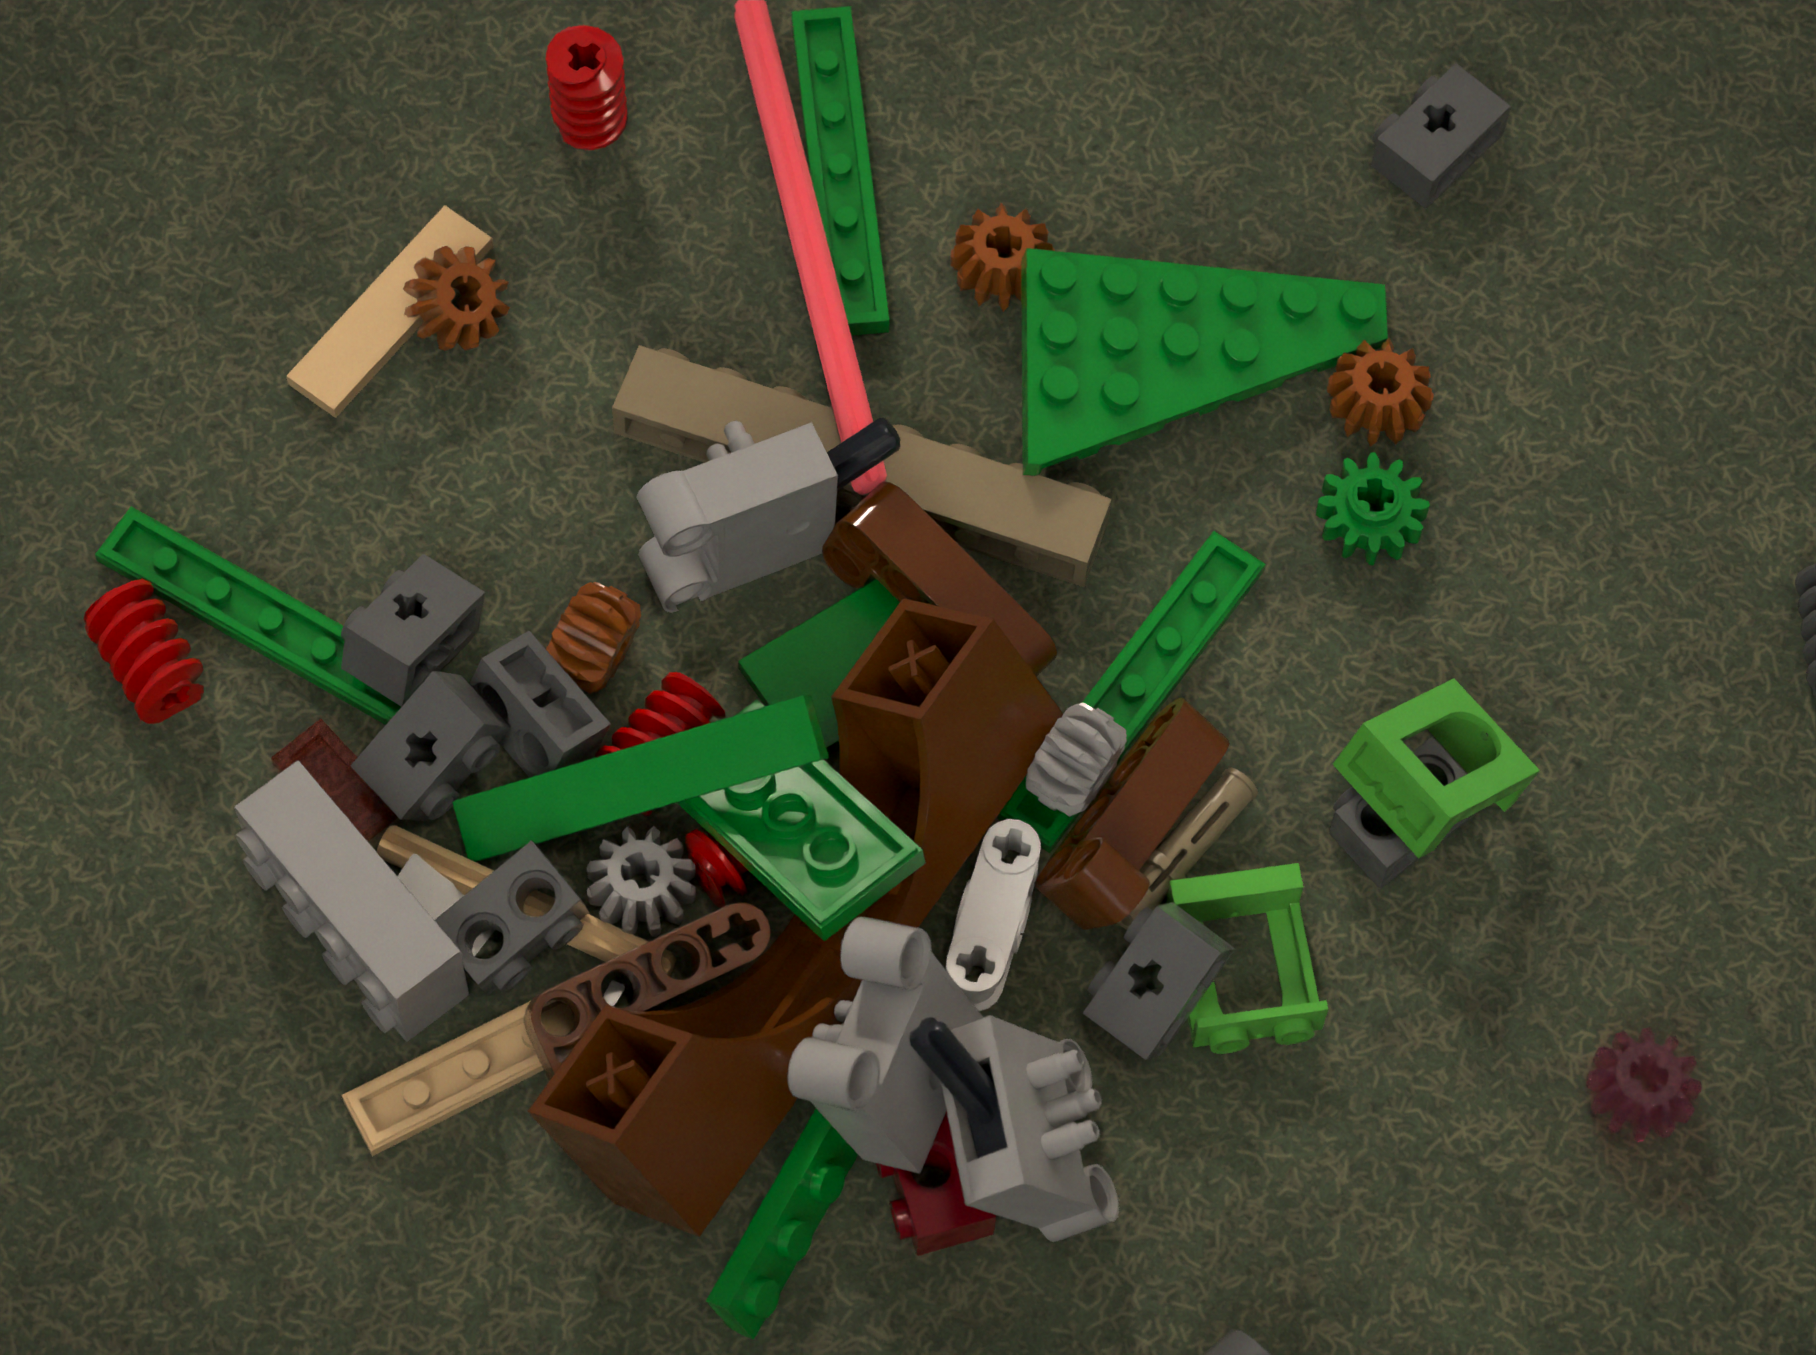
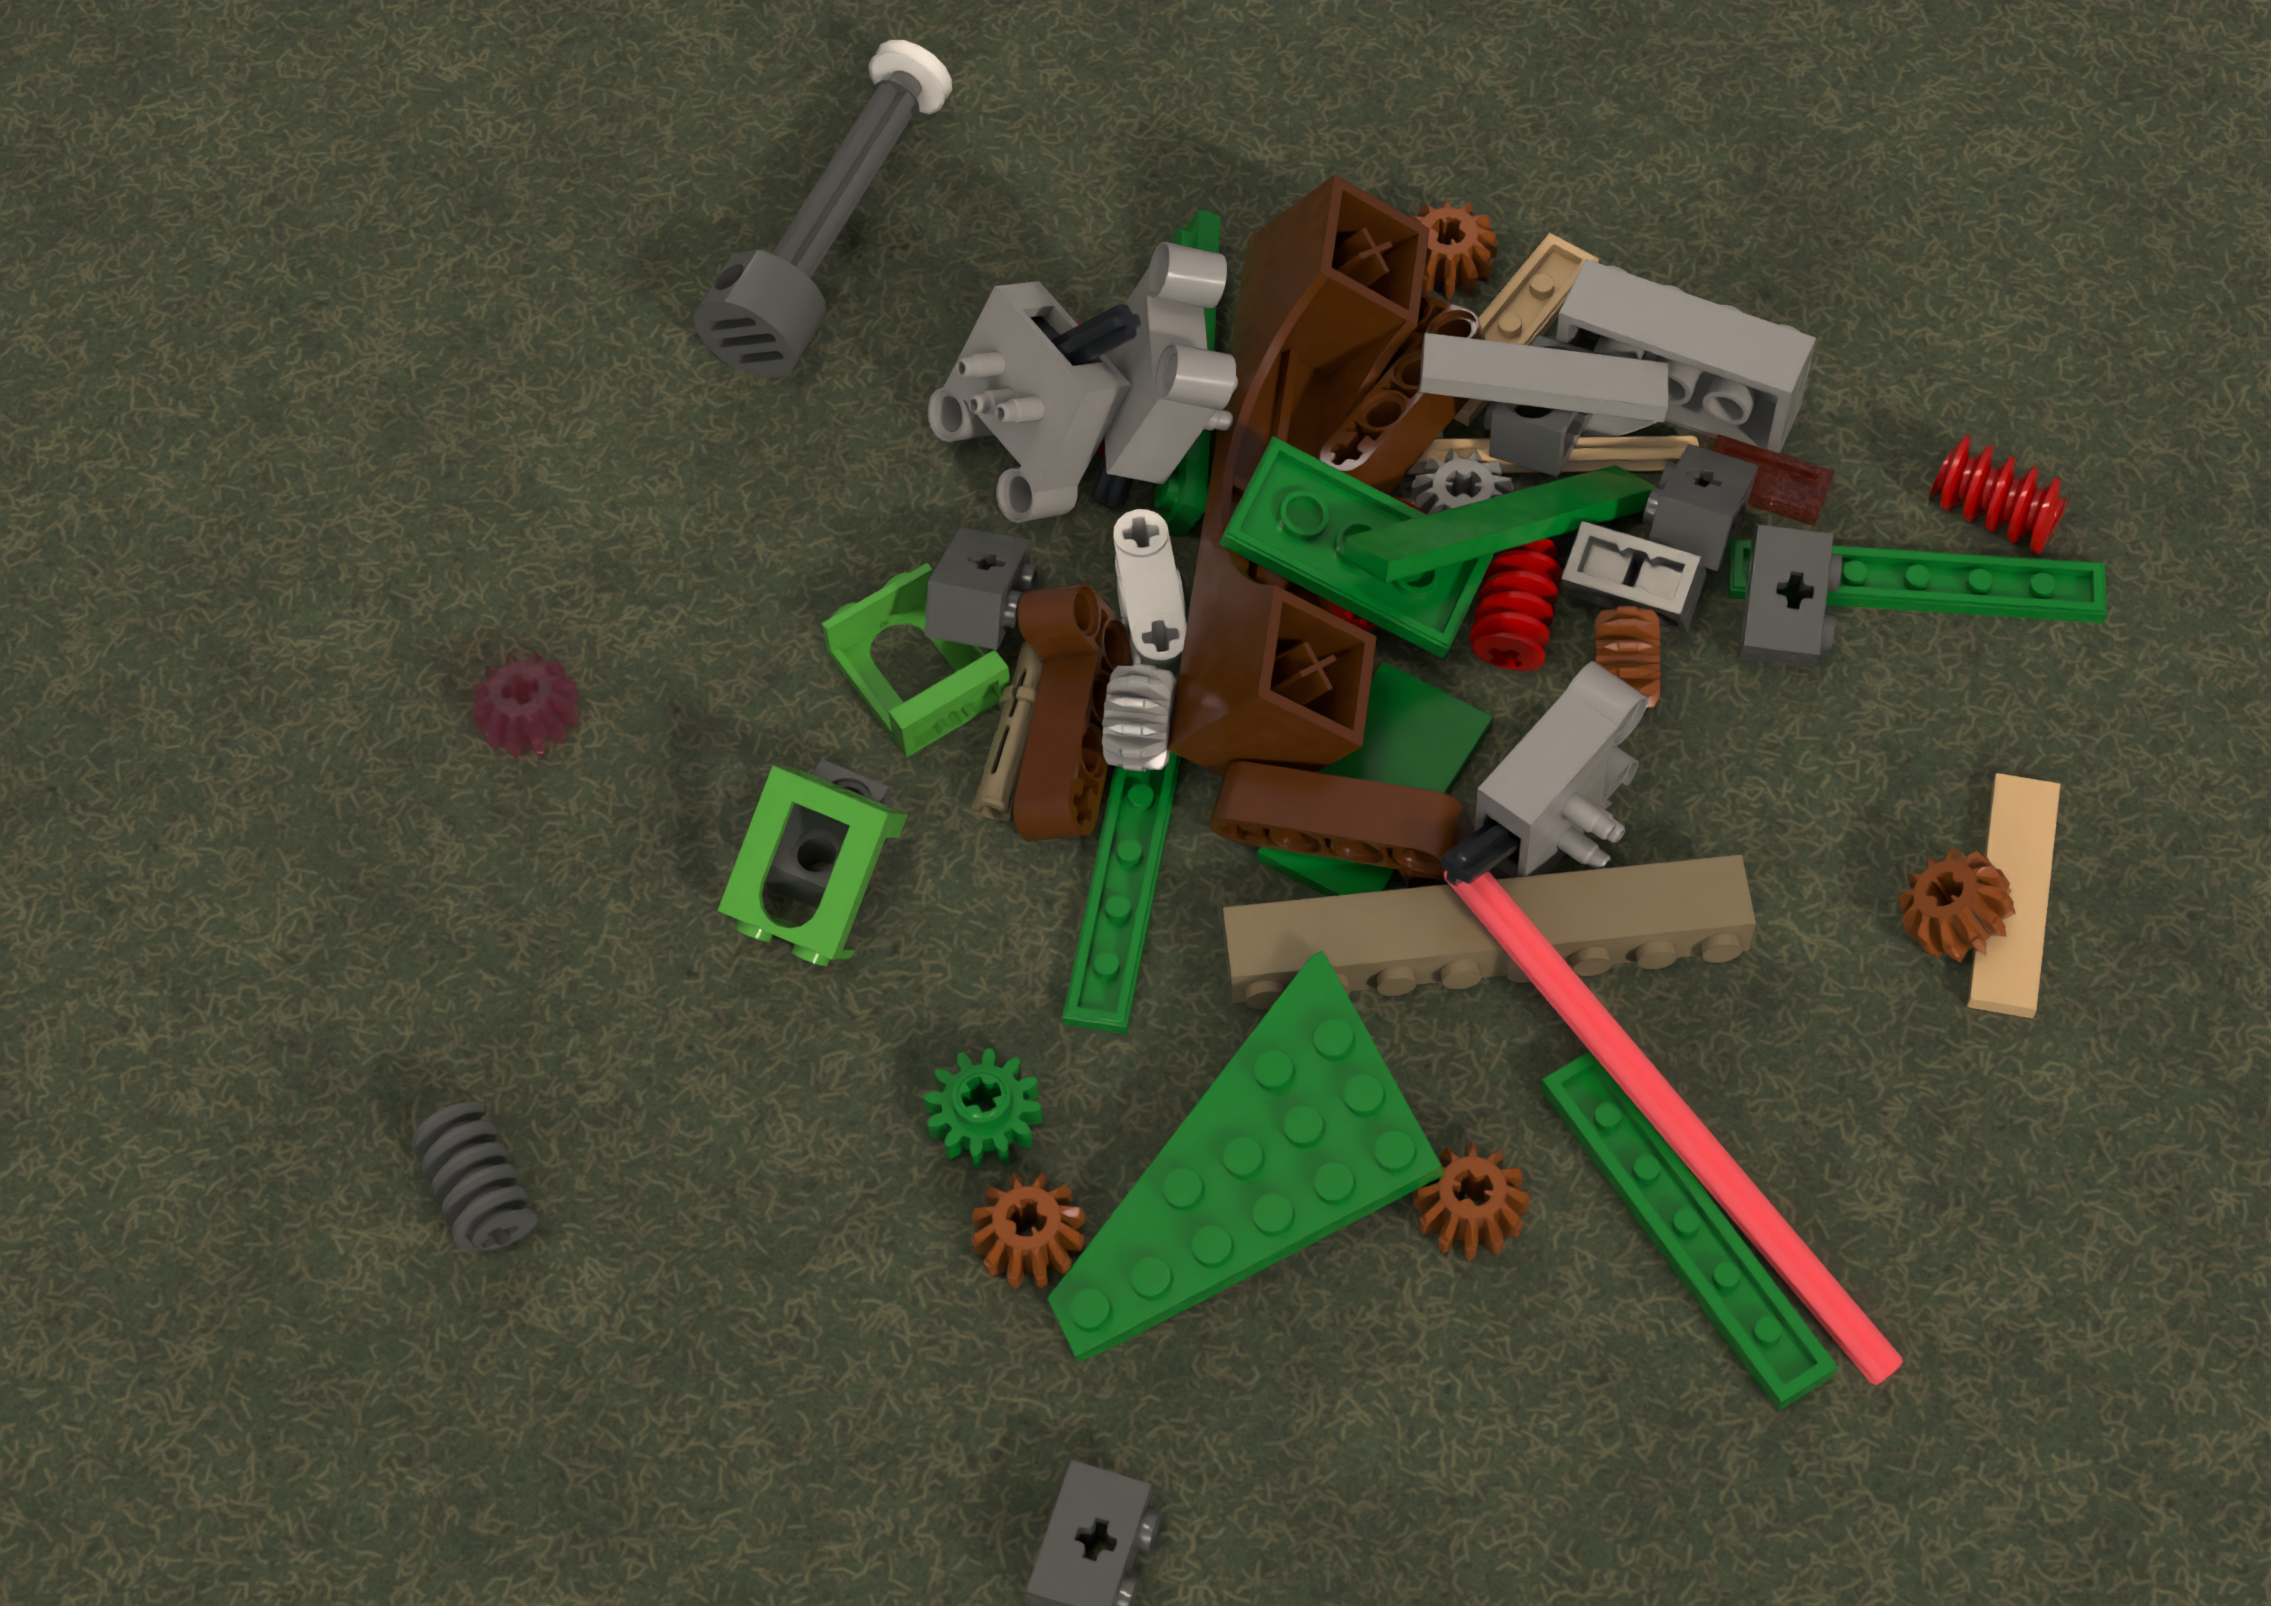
camera: 160 degrees right, 5 degrees down
(460, 1177) = (1458, 248): none -> dark orange gear
(514, 901) = (1544, 377): none -> light grey tile
(587, 86) = (1978, 1156): red piece -> none

